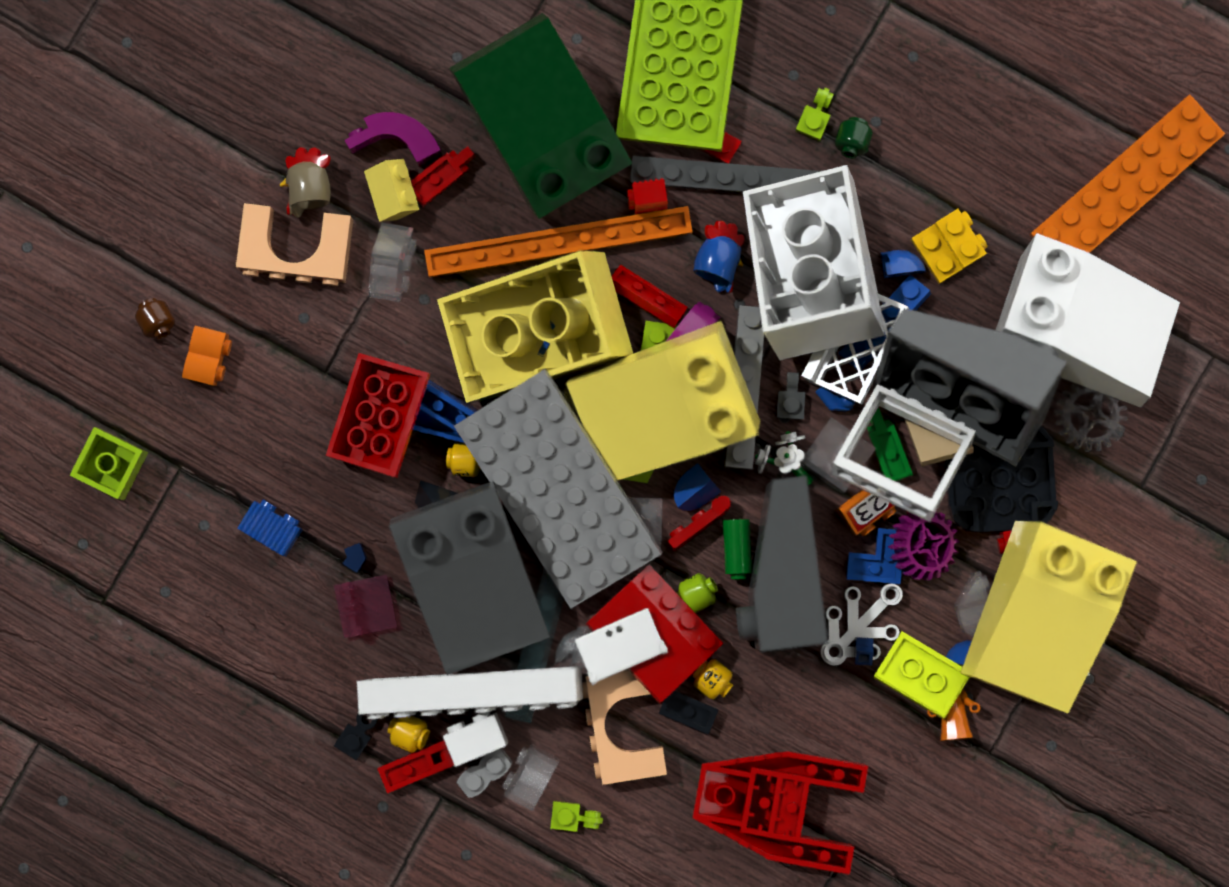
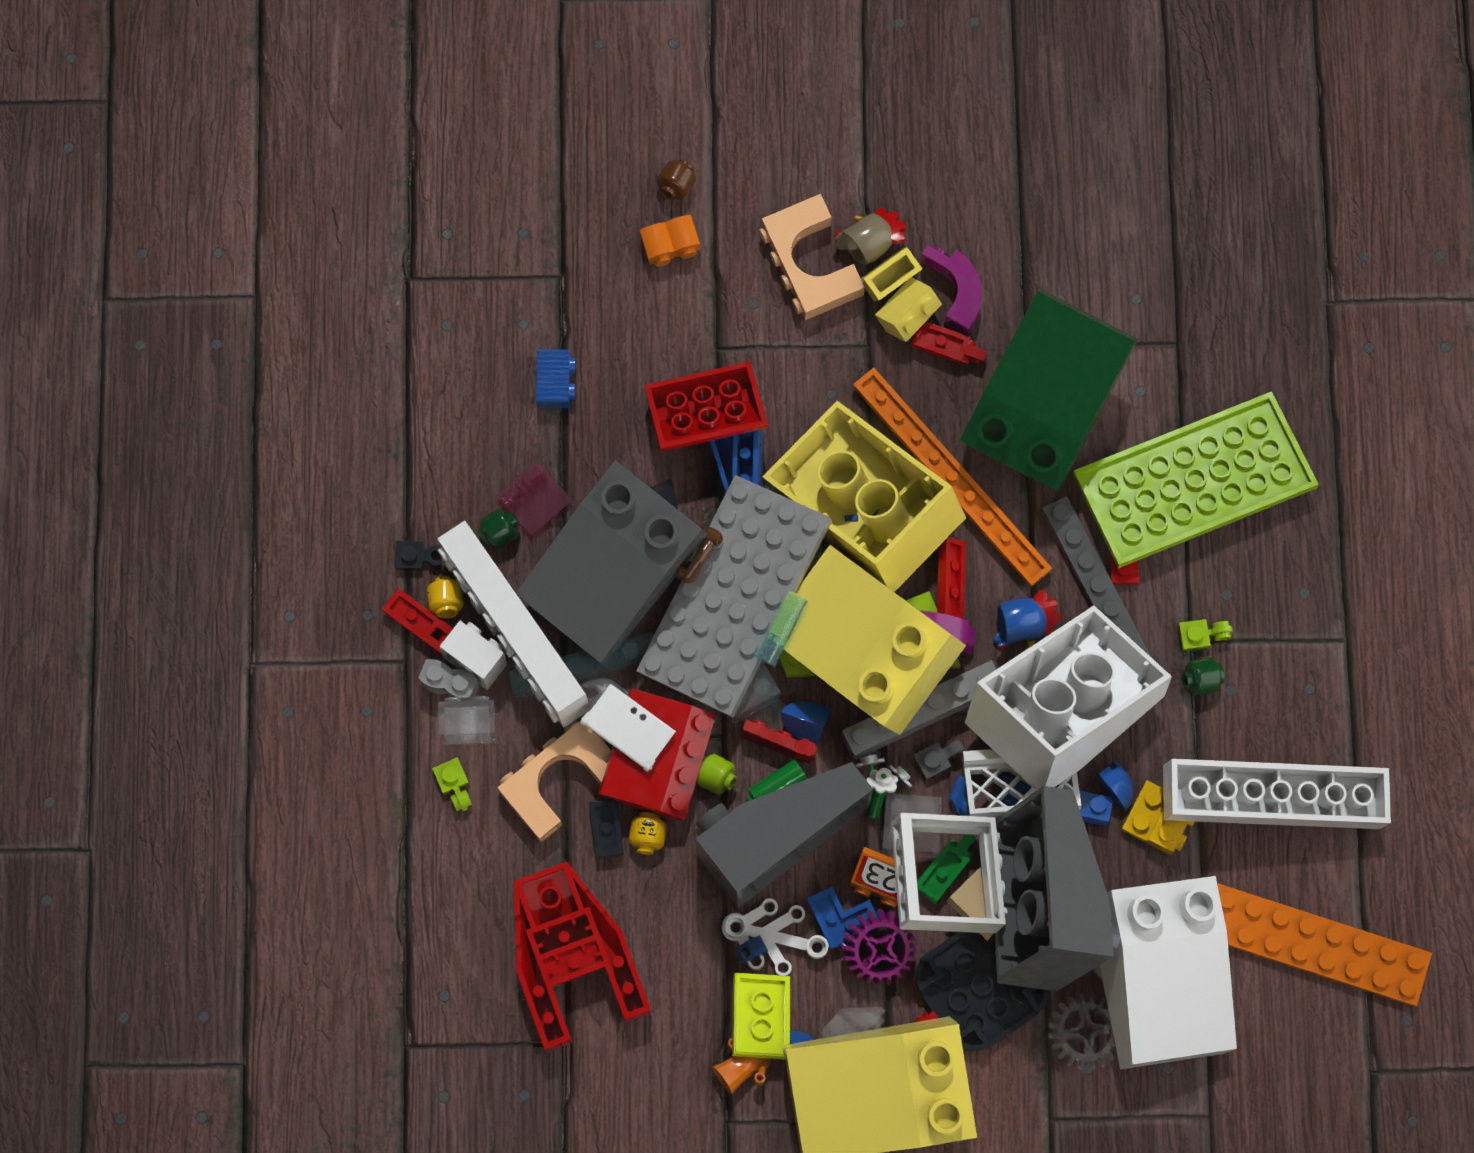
camera: 60 degrees right, 10 degrees down
(109, 463) = (529, 213): lime brick -> none
(351, 186) = (890, 274): none -> light yellow piece
(355, 557) = (571, 465): dark blue piece -> none
(375, 652) = (498, 528): none -> dark green head
(390, 261) = (845, 343): clear brick -> none
(462, 461) = (707, 504): yellow head -> none
(518, 514) = (690, 572): none -> reddish brown arm
(614, 467) = (782, 628): none -> clear light blue piece
(647, 196) = (1038, 526): red brick -> none
(991, 139) = (1276, 794): none -> white brick

